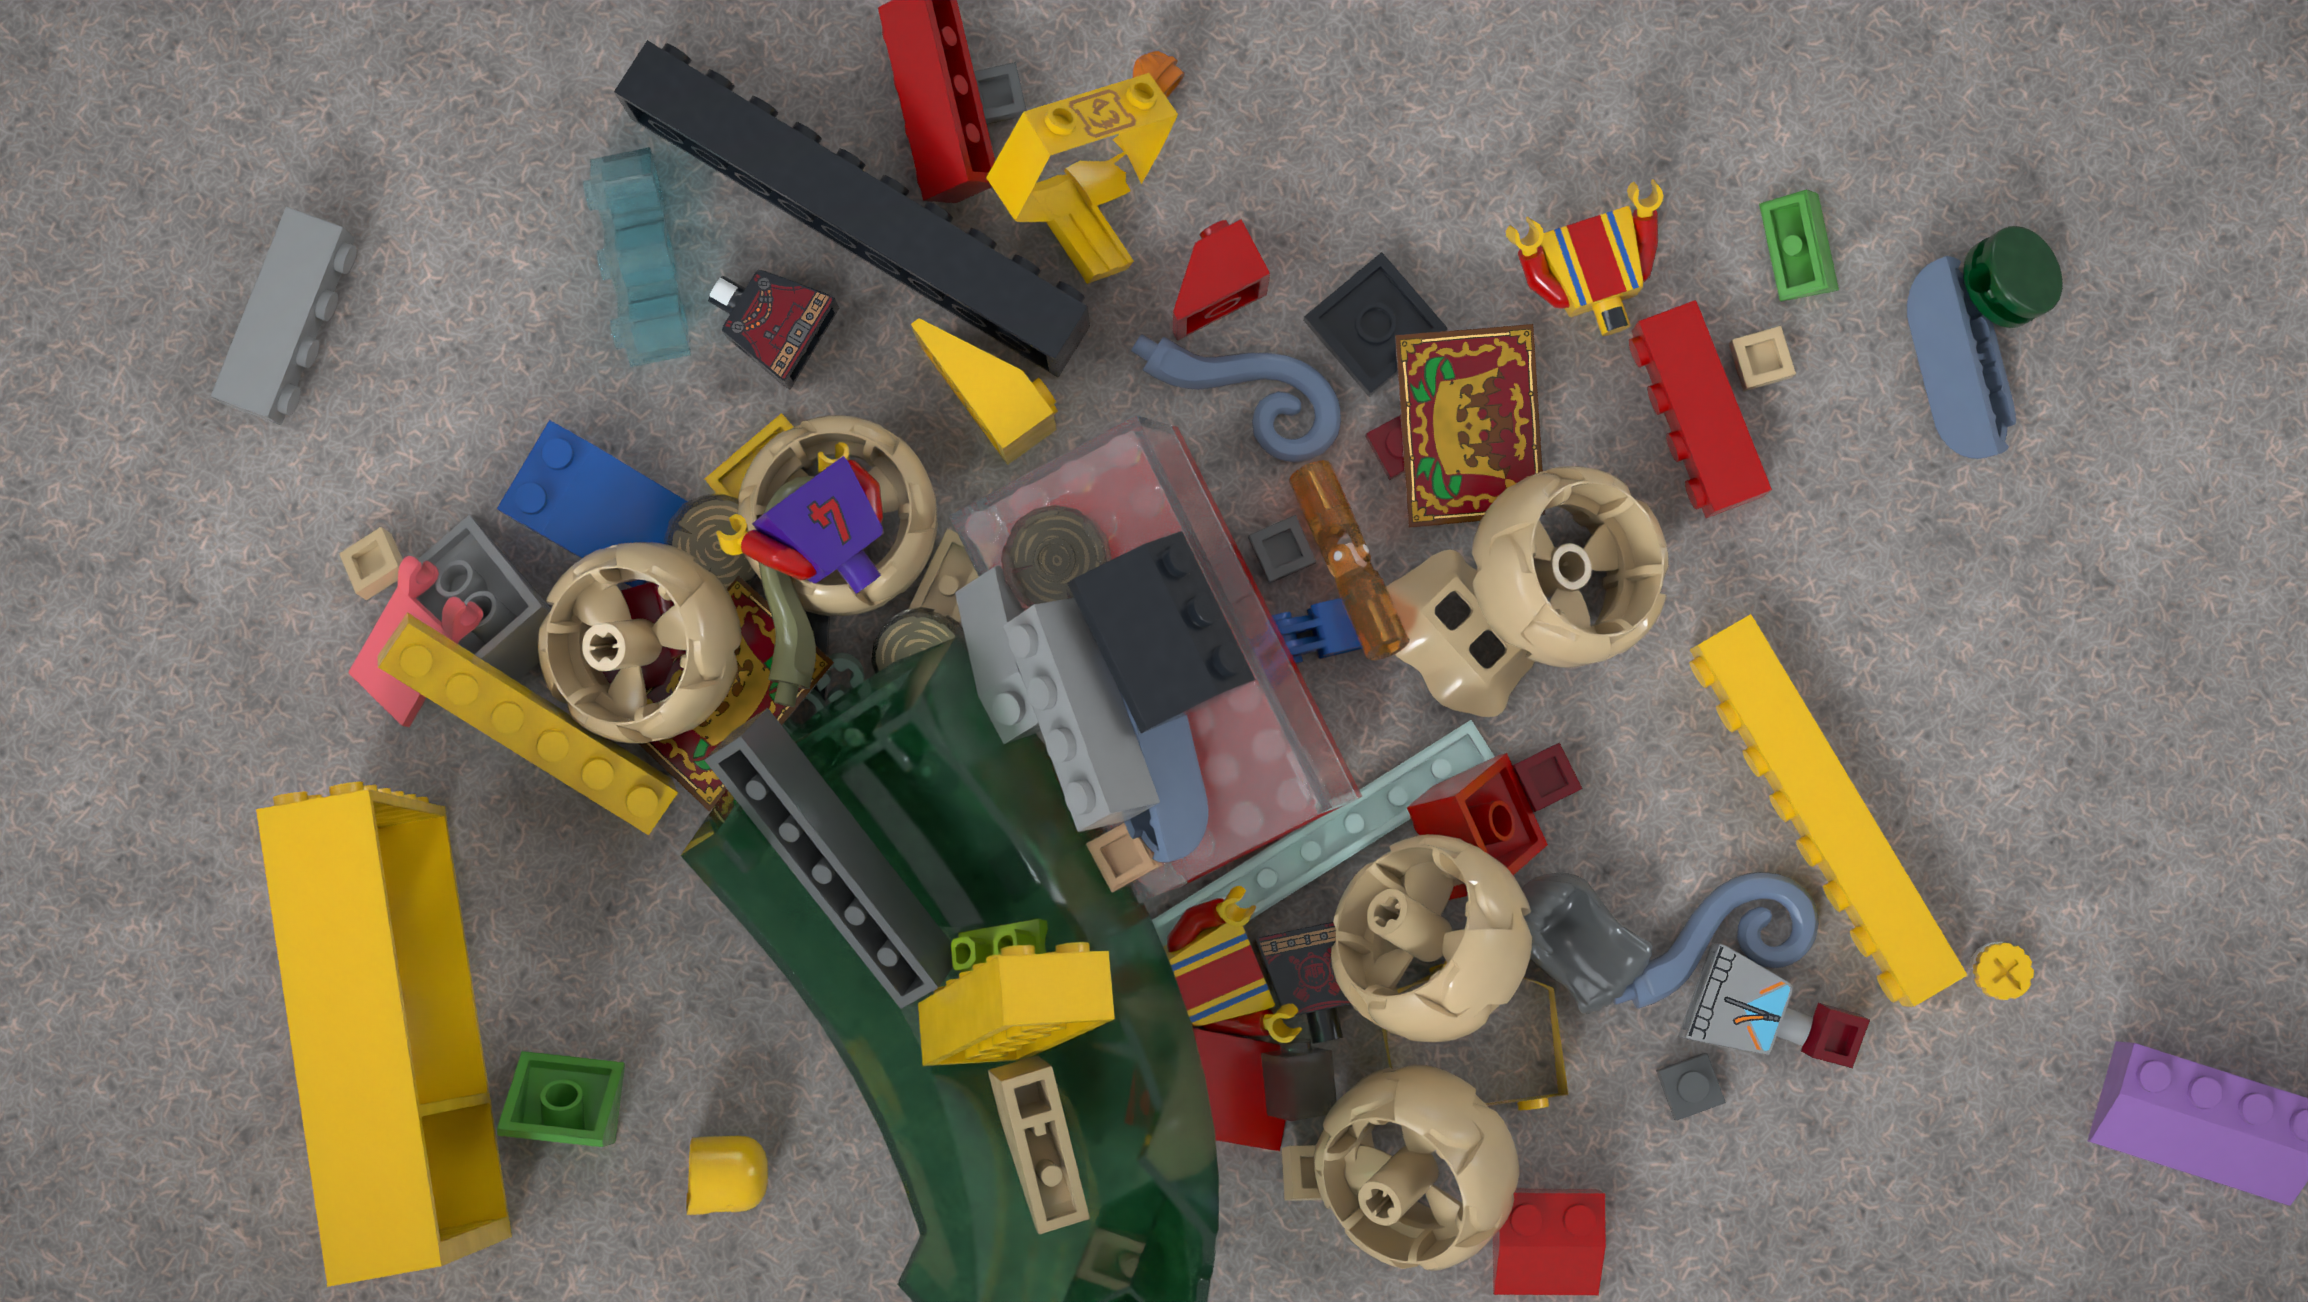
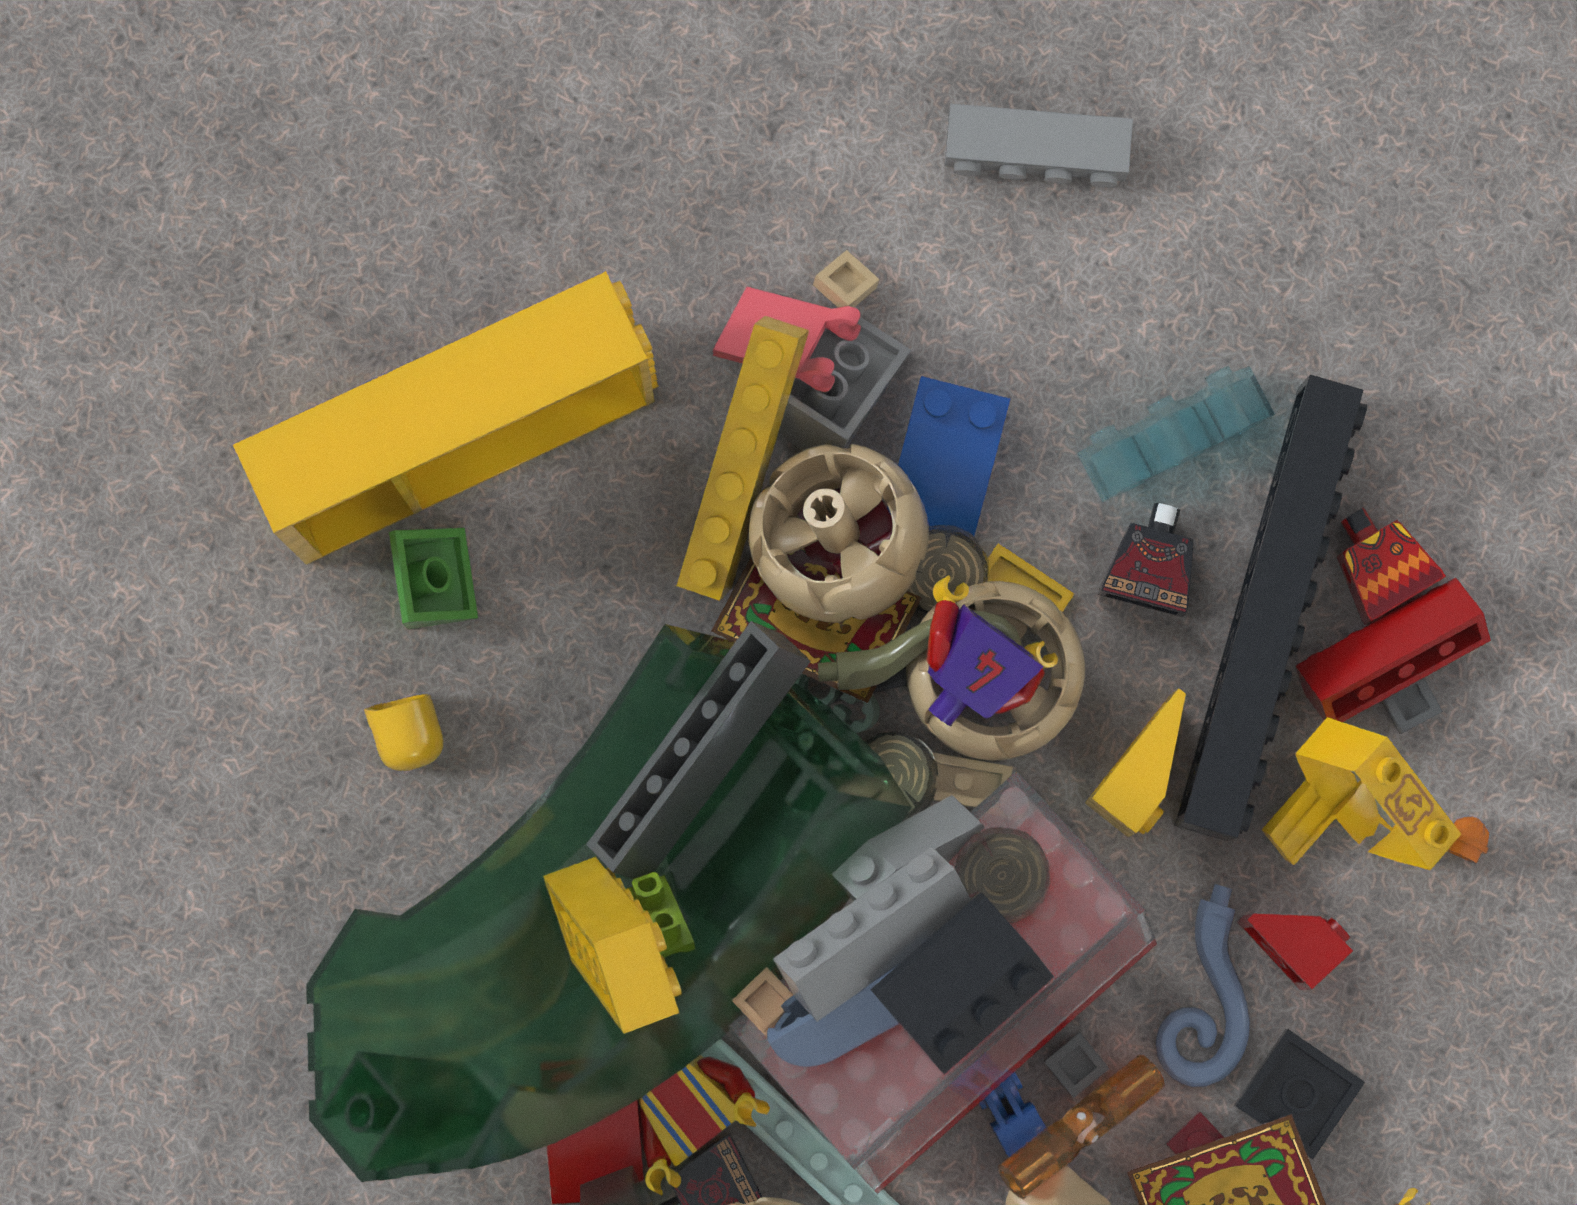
camera: 70 degrees right, 0 degrees up
(844, 79) = (1384, 566): none -> torso
(1039, 1142) = (505, 994): tan slope -> none

